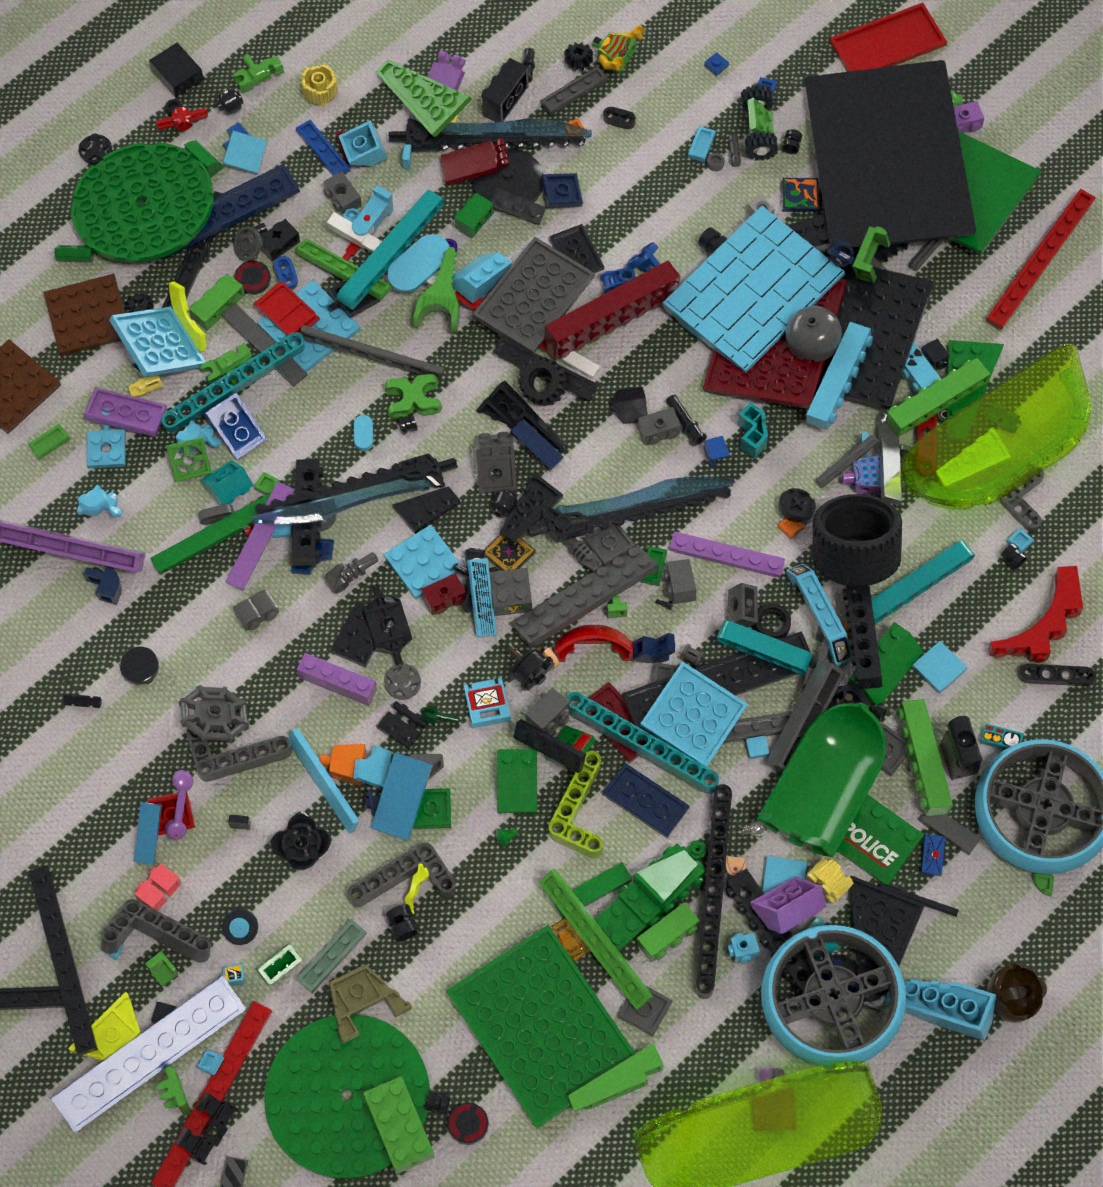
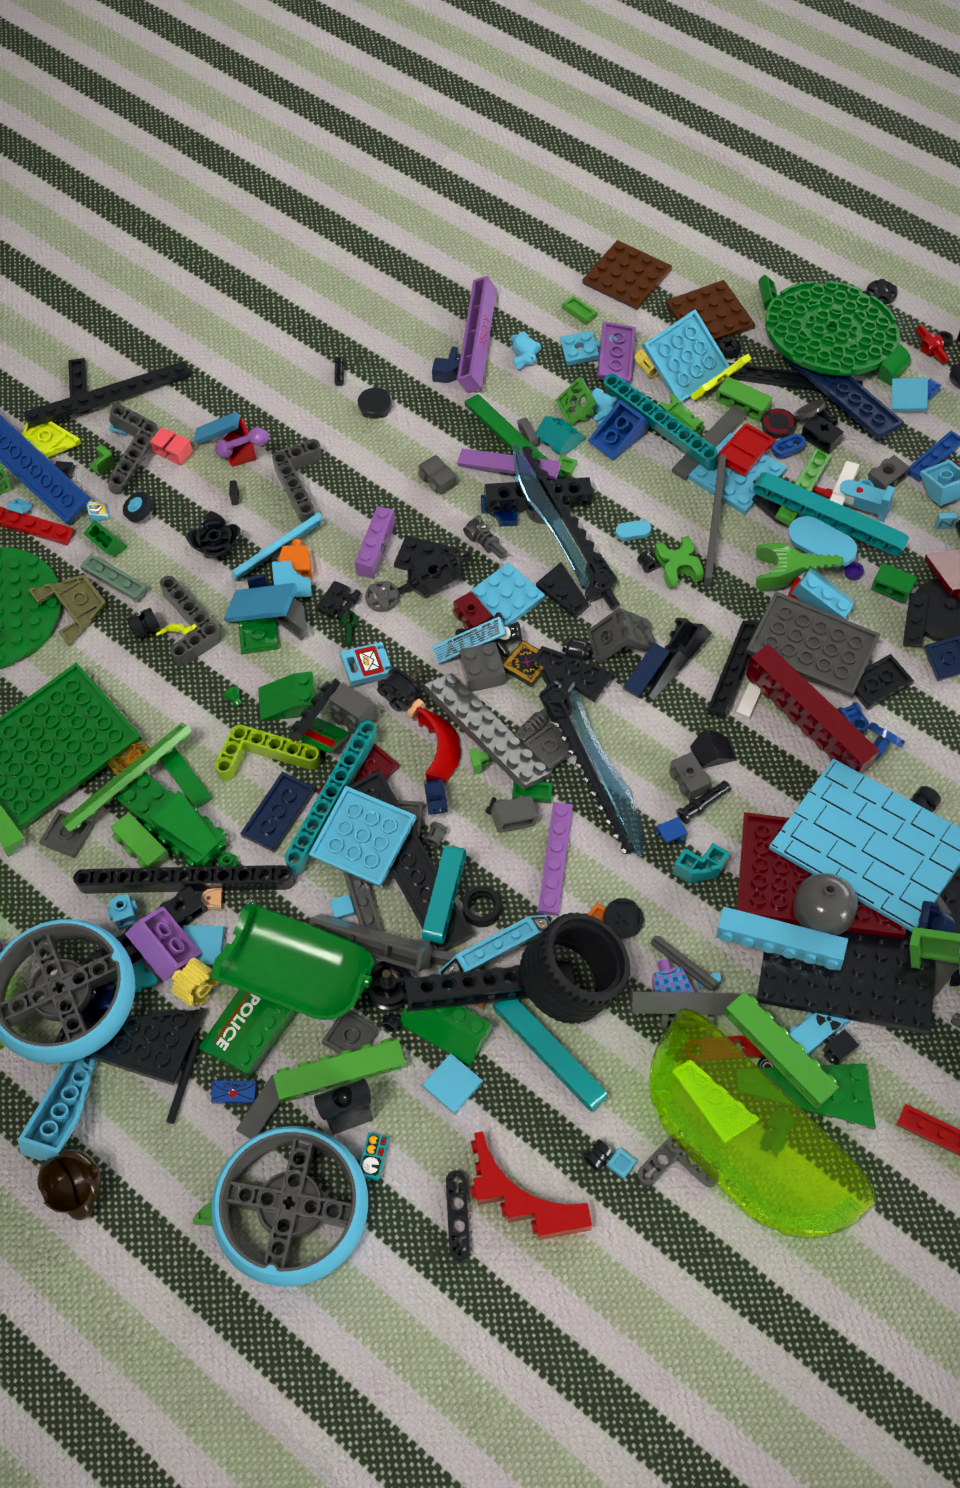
camera: 85 degrees right, 5 degrees down
(214, 699) = (327, 464): dark grey plate -> none
(532, 370) = (715, 662): black tyre -> none
(743, 604) = (493, 873): dark grey brick -> none

